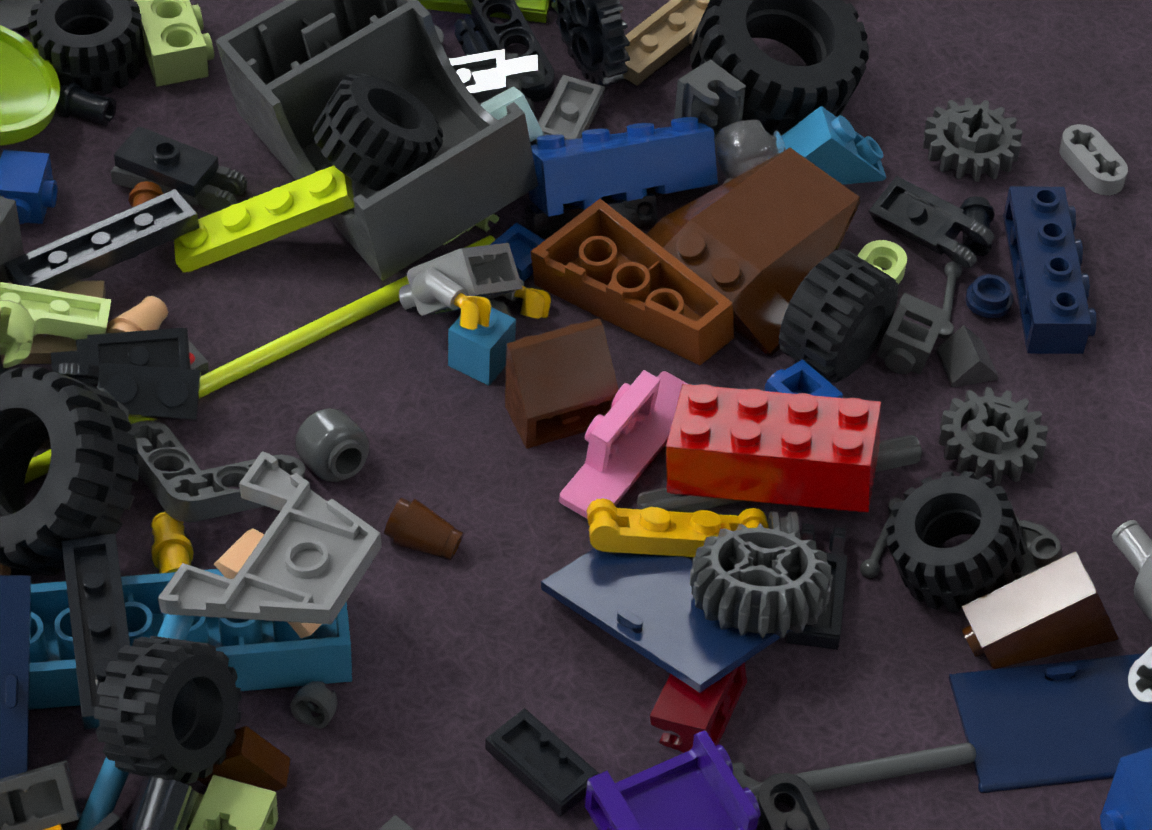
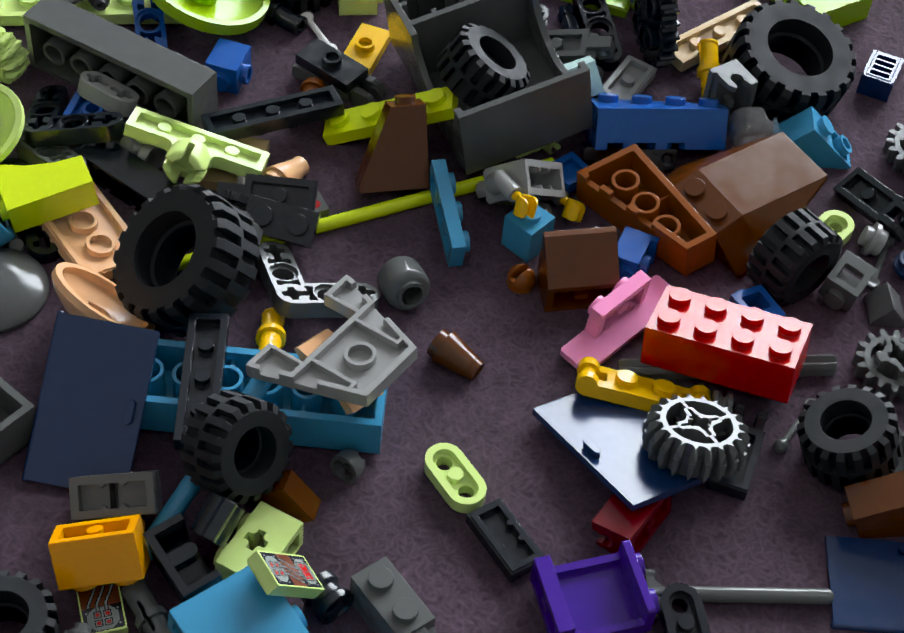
camera: 10 degrees right, 0 degrees up
(128, 111) = (310, 17): none -> white hinge
(207, 122) = (368, 45): none -> yellow plate
(283, 263) = (397, 149): none -> reddish brown slope
(370, 338) = (448, 213): none -> dark azure plate
(462, 695) = (458, 479): none -> yellowish green plate
(492, 412) = (524, 282): none -> dark orange hinge
(631, 346) = (636, 252): none -> blue brick
(671, 66) = (707, 59): none -> yellow pin
(899, 44) = (879, 75): none -> dark blue slope
(934, 271) = (873, 239): none -> light grey plate

